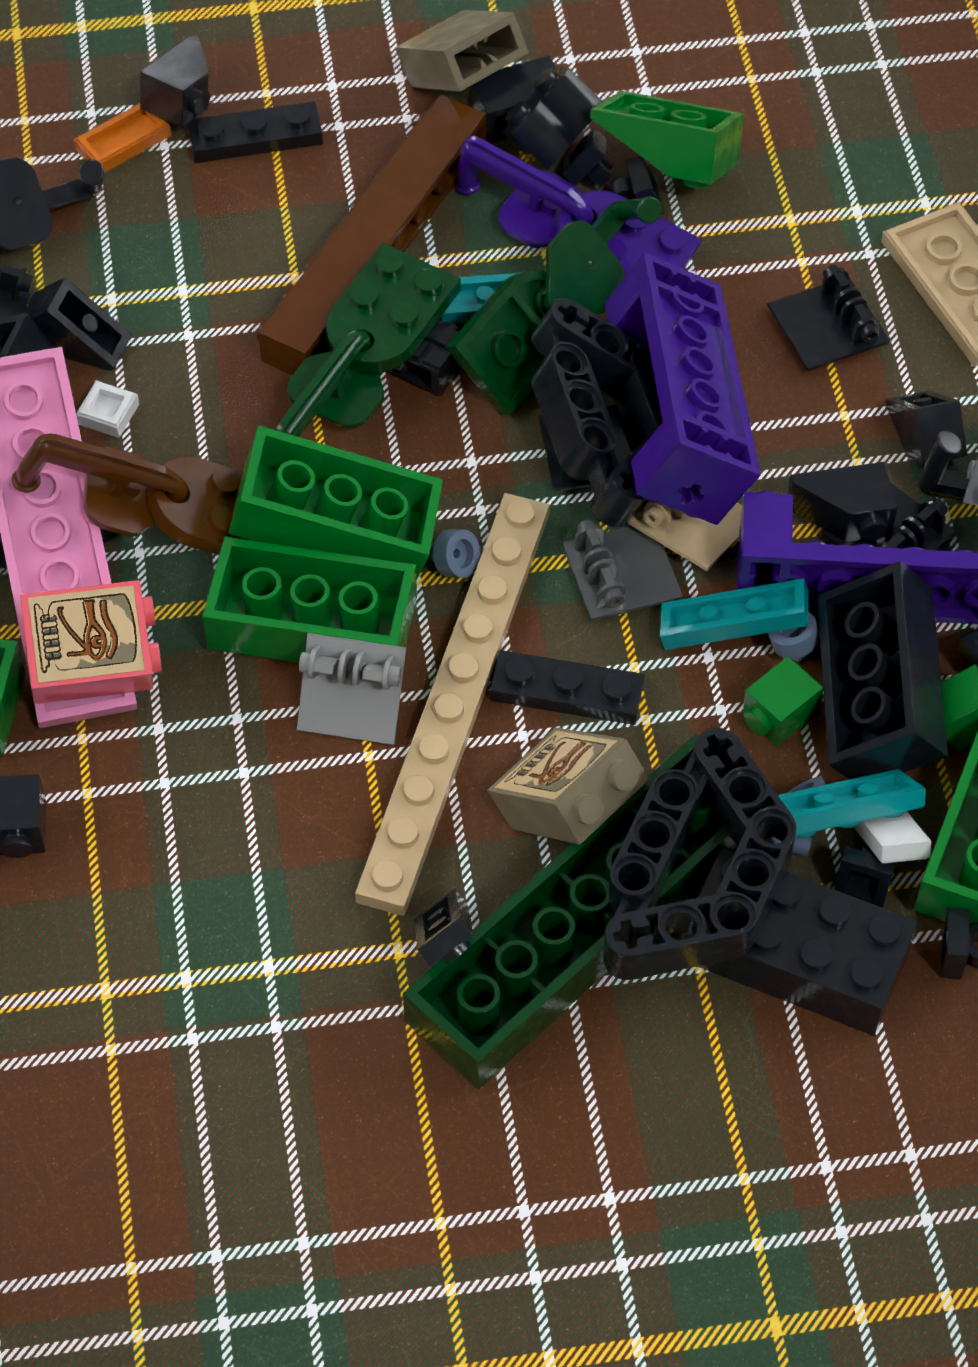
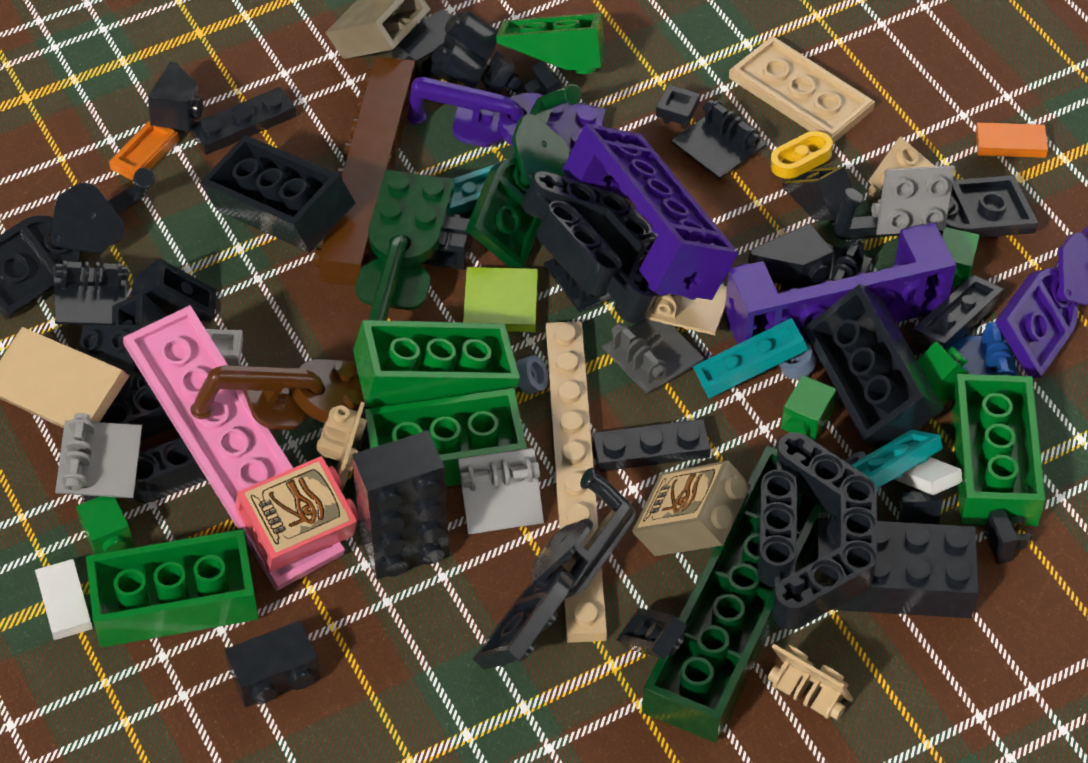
camera: 20 degrees left, 5 degrees down
(187, 568) = (341, 438): none -> tan hinge
(205, 670) = (401, 504): none -> black brick
(243, 235) = (278, 193): none -> black brick
(359, 825) = (552, 583): none -> black plate
(466, 446) = (502, 297): none -> lime tile
(612, 1043) = (797, 666): none -> tan hinge
(792, 260) = (677, 105): none -> black tile
(925, 368) = (801, 154): none -> yellow plate

